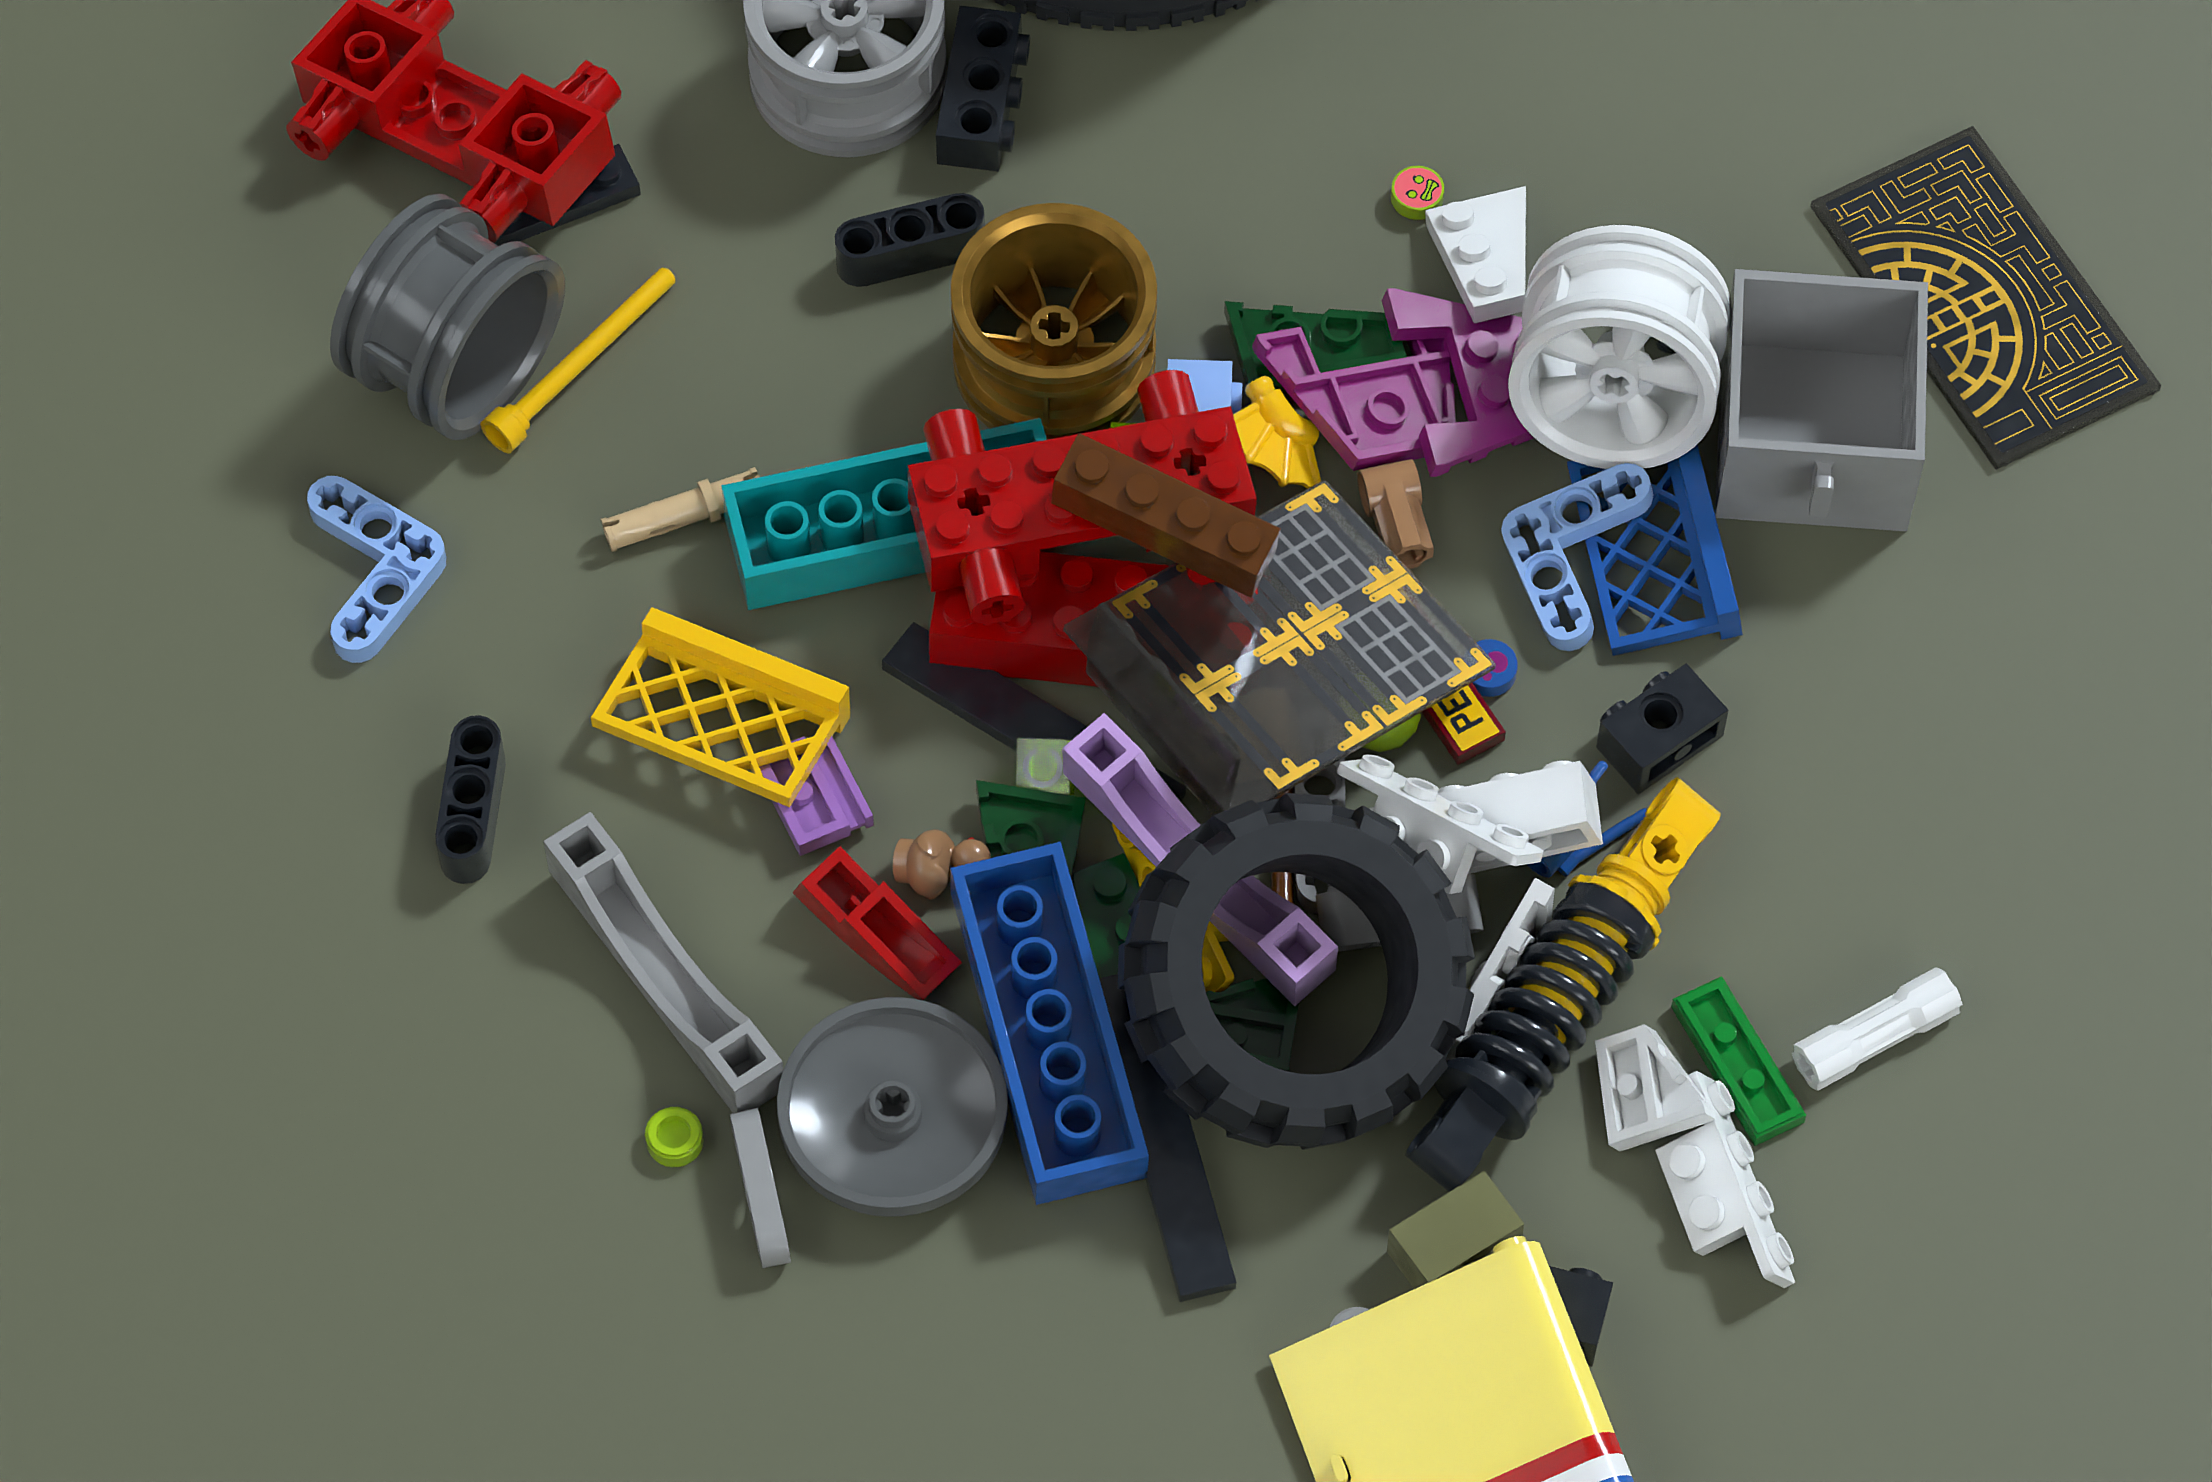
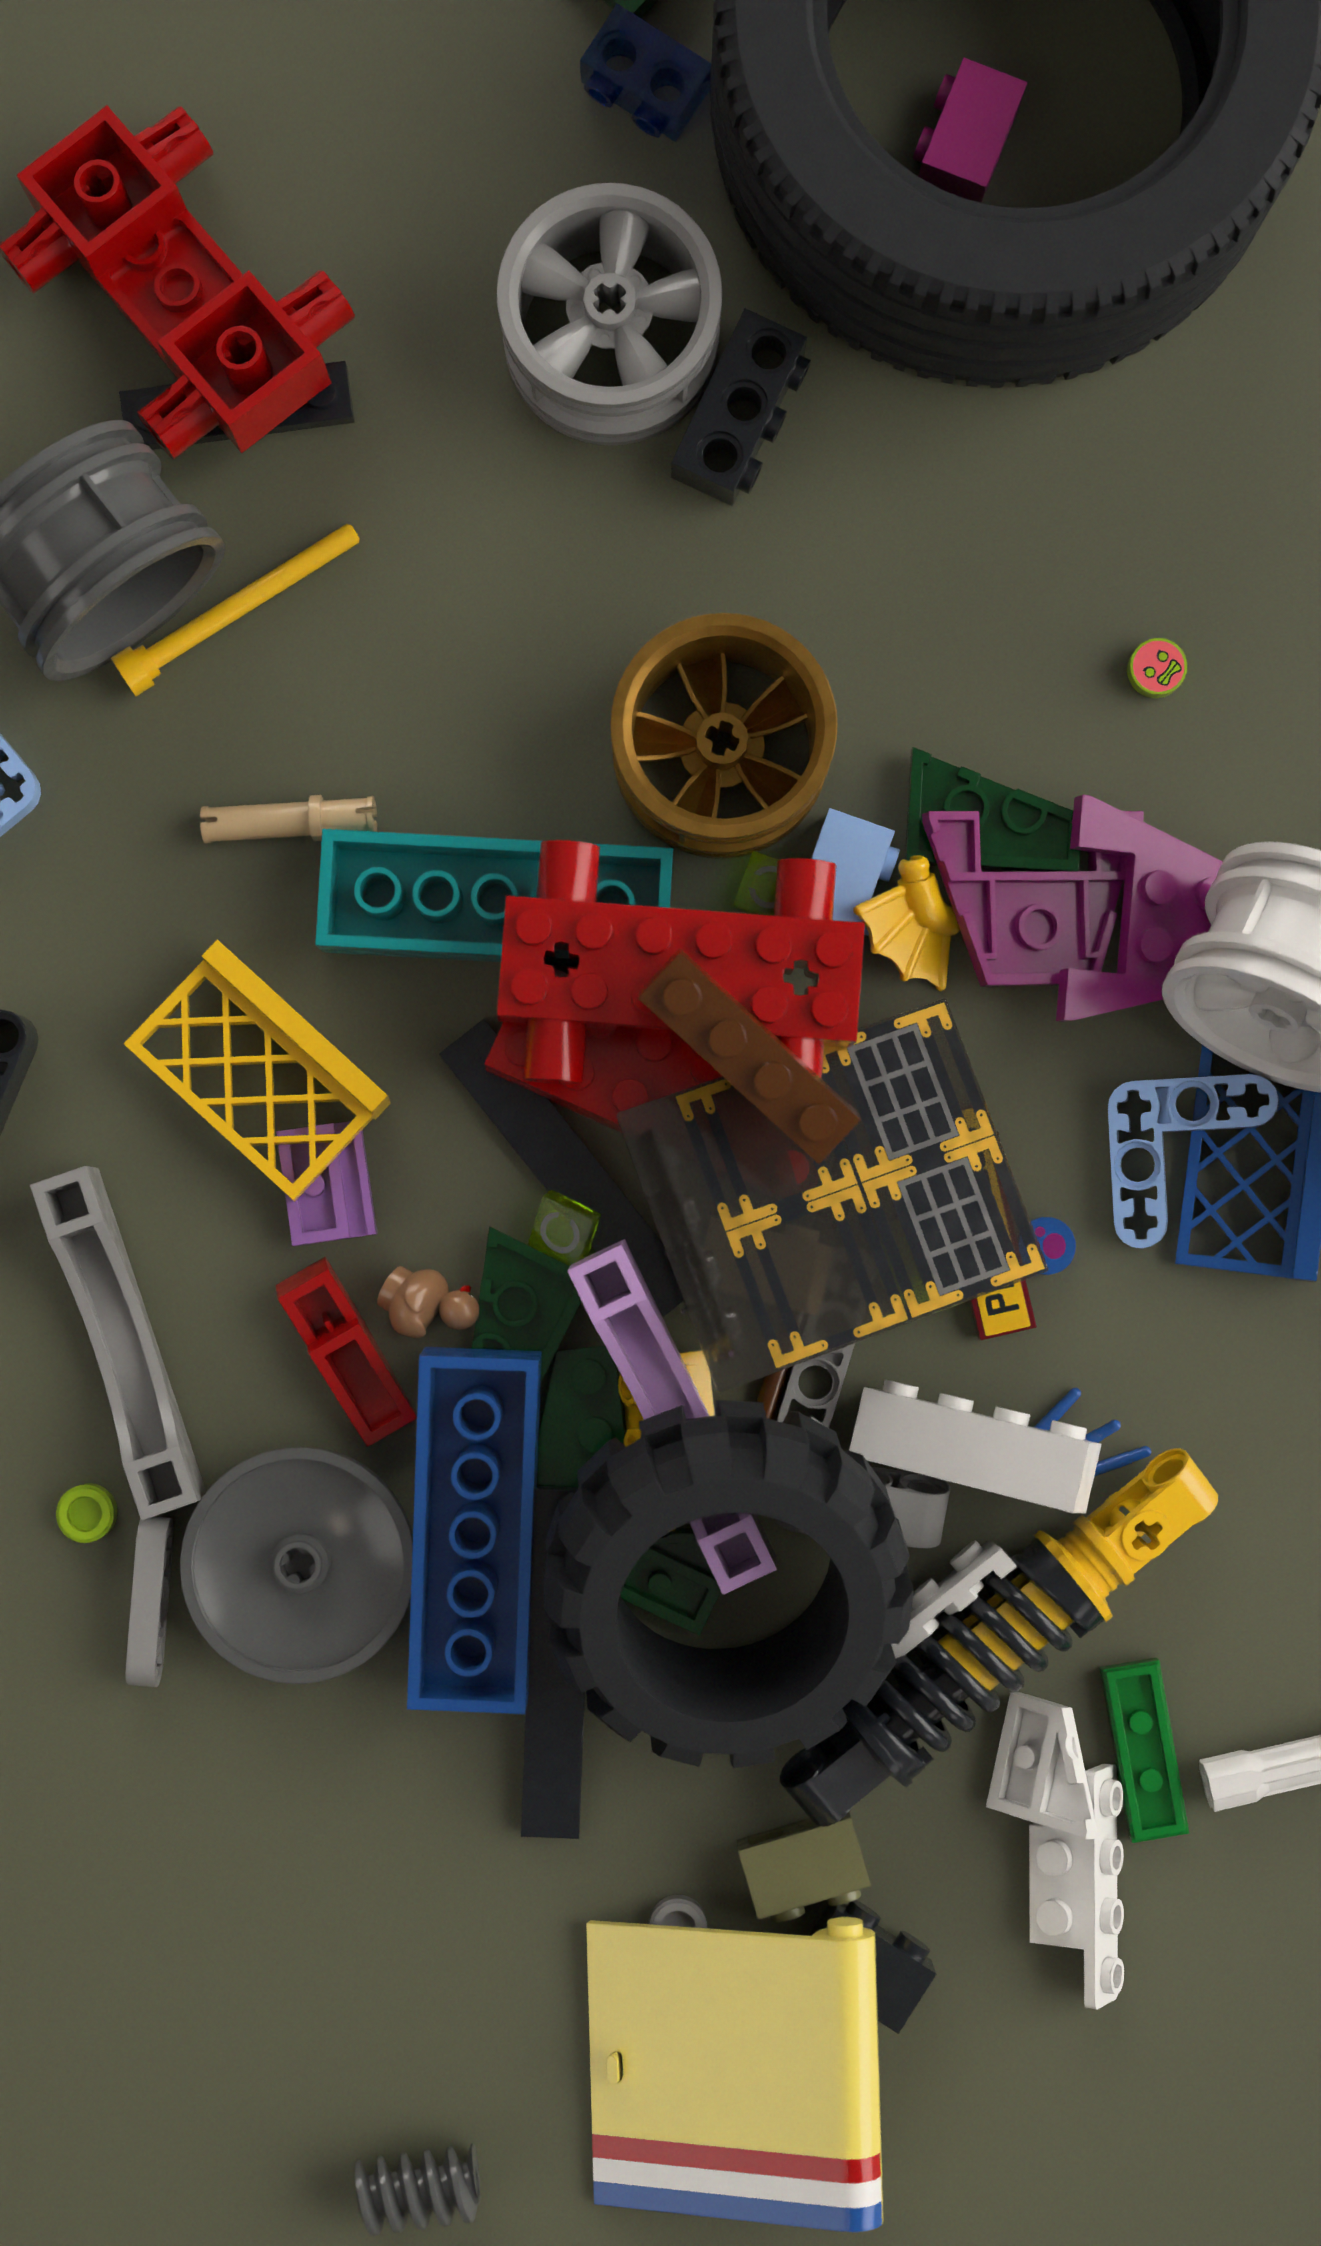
camera: 15 degrees right, 25 degrees up
(883, 236) = (585, 557): black beam -> none
(1394, 500) = (1011, 1027): medium nougat piece -> none
(1433, 823) = (919, 1452): white bracket -> none
(1484, 251) = (1202, 768): white wing -> none
(1648, 753) = (1228, 1375): black brick -> none

